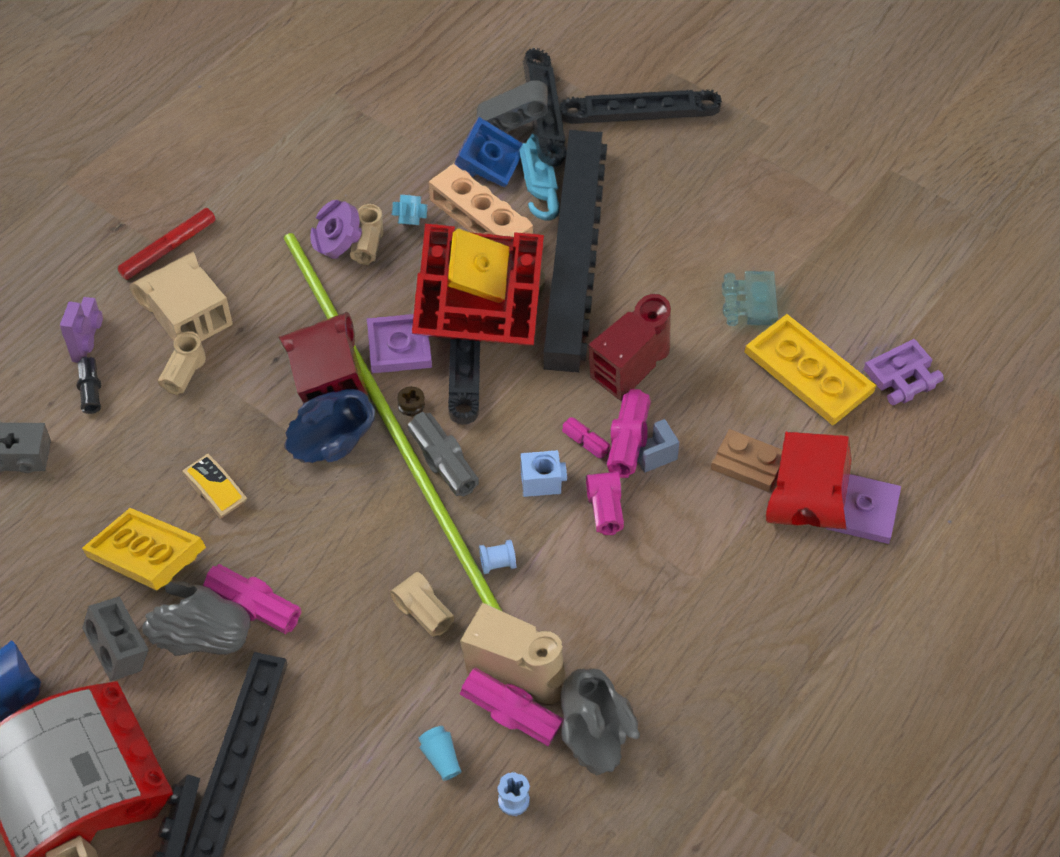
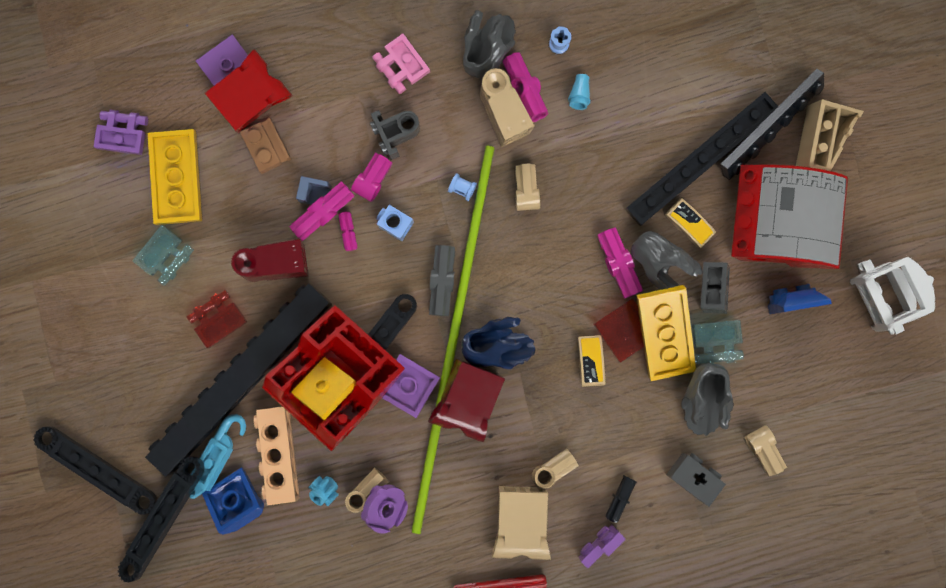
camera: 145 degrees left, 30 degrees up
(49, 524) = (708, 399): none -> dark grey hair
(70, 608) = (716, 334): none -> clear light blue plate
(194, 696) = (689, 221): none -> slope
(212, 527) = (622, 330): none -> clear red plate
(416, 406) = (424, 336): dark brown bush -> none
(515, 106) = (187, 526): dark grey beam -> none
(624, 560) = (393, 132): none -> dark grey pin
(637, 276) = (221, 324): none -> clear red plate
(677, 645) = (406, 59): none -> bright pink plate

